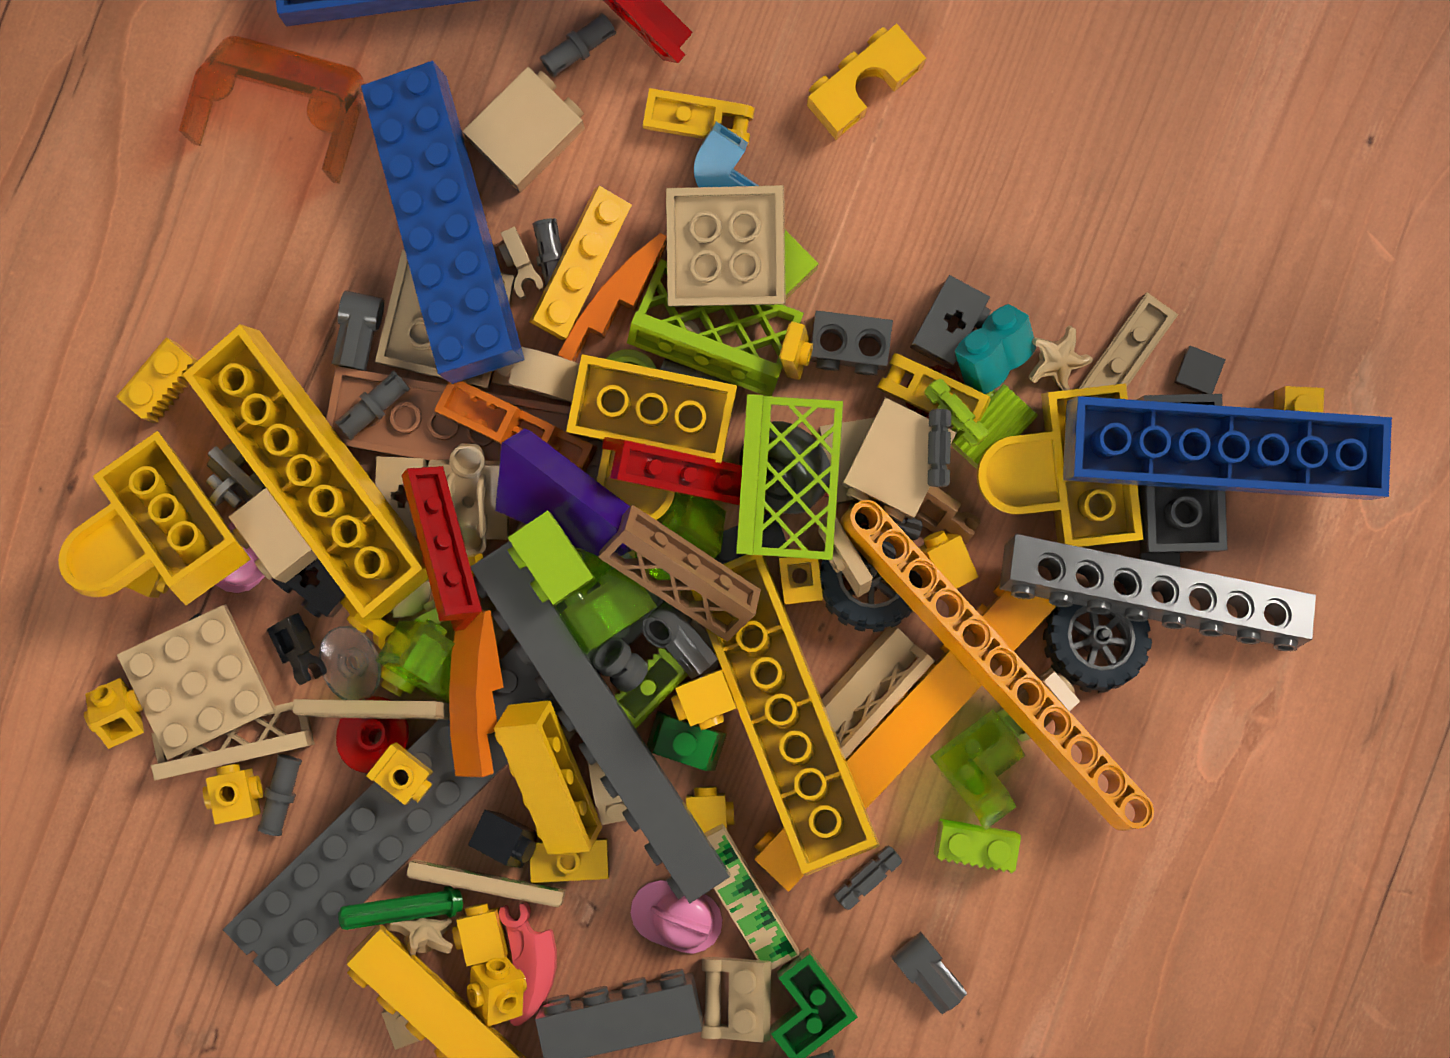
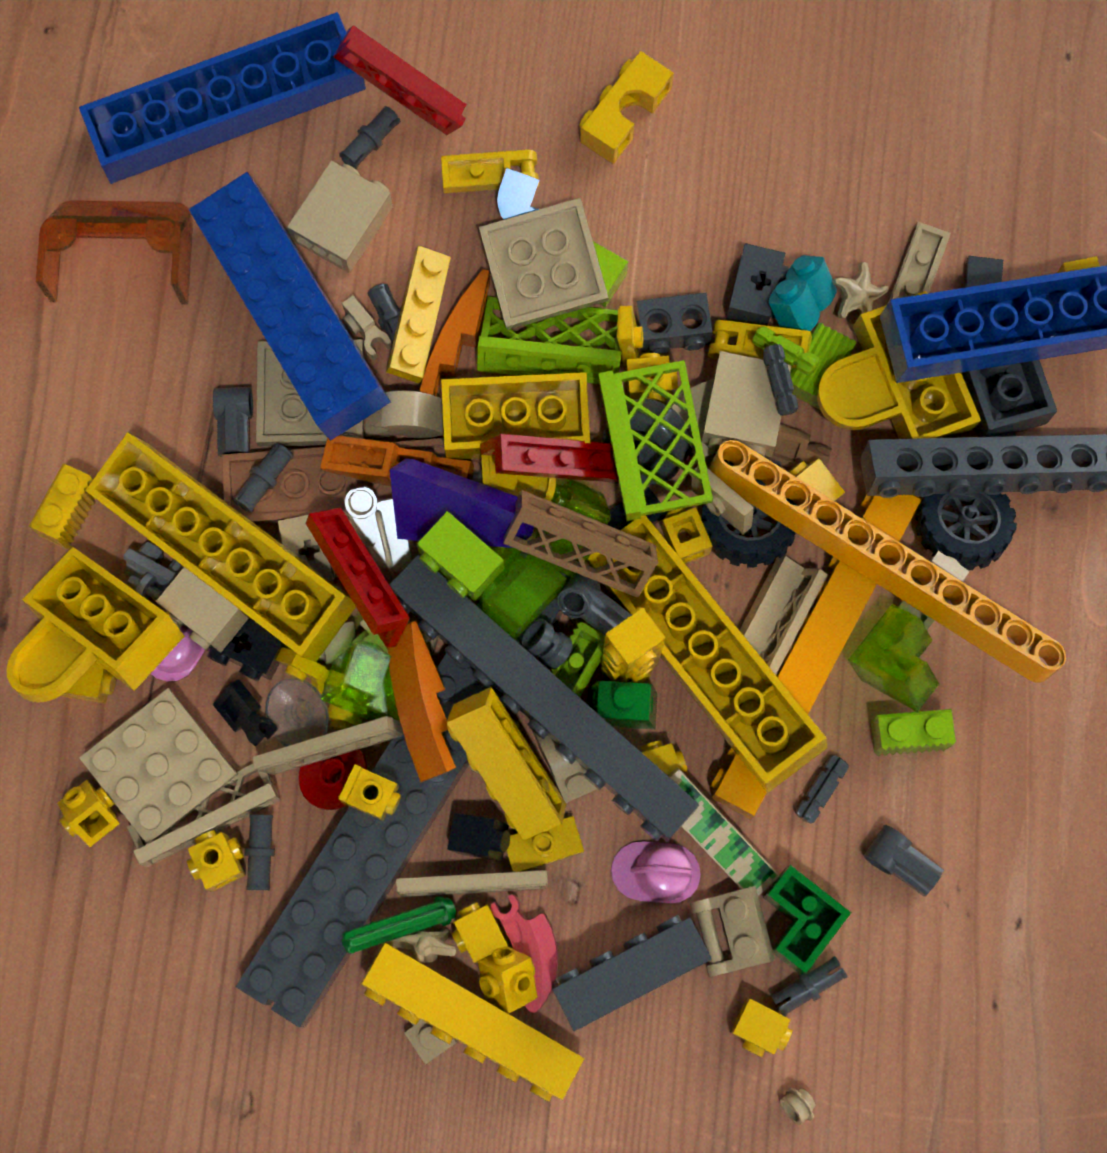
camera: 15 degrees left, 10 degrees down
(813, 385) = (667, 382): none -> yellow brick

